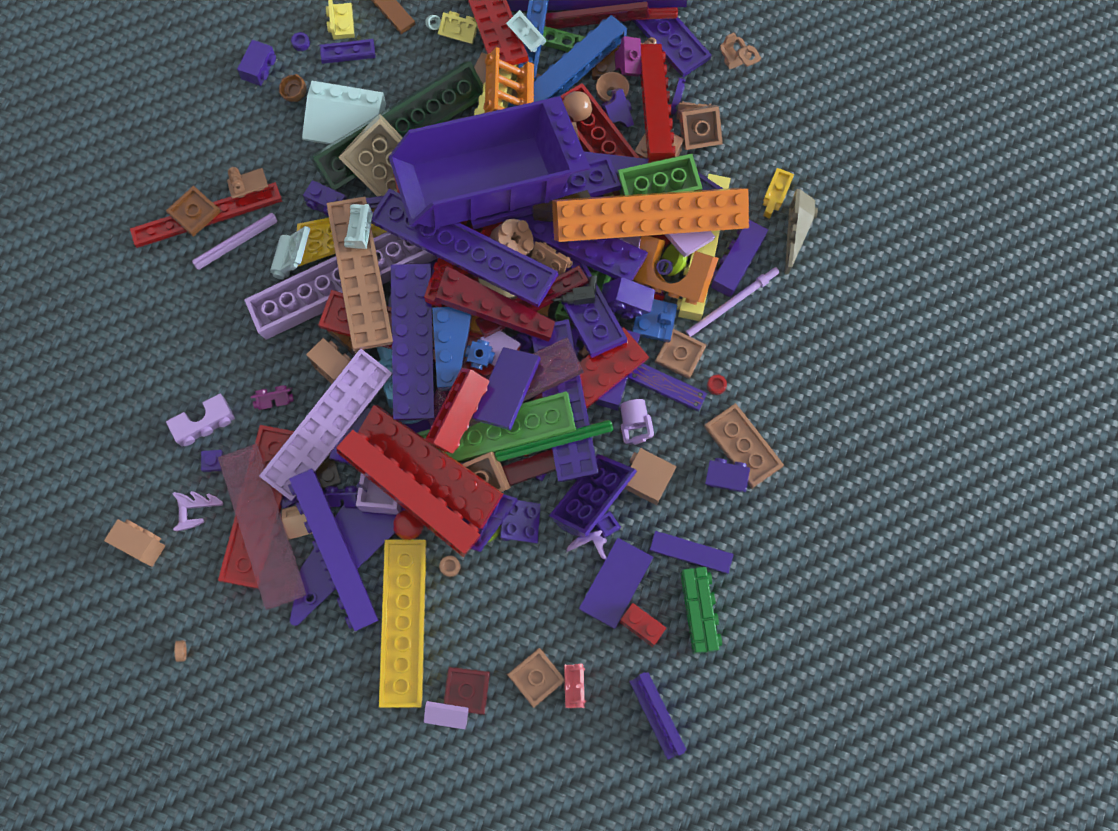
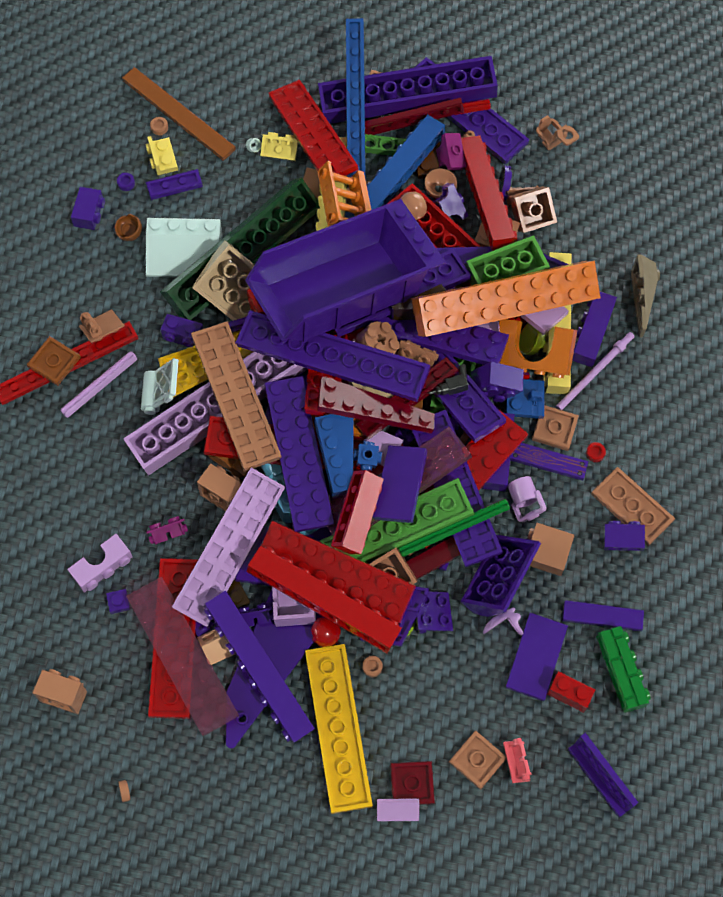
camera: 10 degrees left, 5 degrees down
(185, 503) = (101, 646): lavender piece -> none
(358, 226) = (227, 351): light aqua hinge -> none
(526, 31) = (351, 141): light aqua hinge -> none
(607, 525) = (519, 602): dark purple tile -> none
(661, 266) = (522, 346): dark purple hinge -> none
(777, 191) = (617, 260): yellow hinge -> none

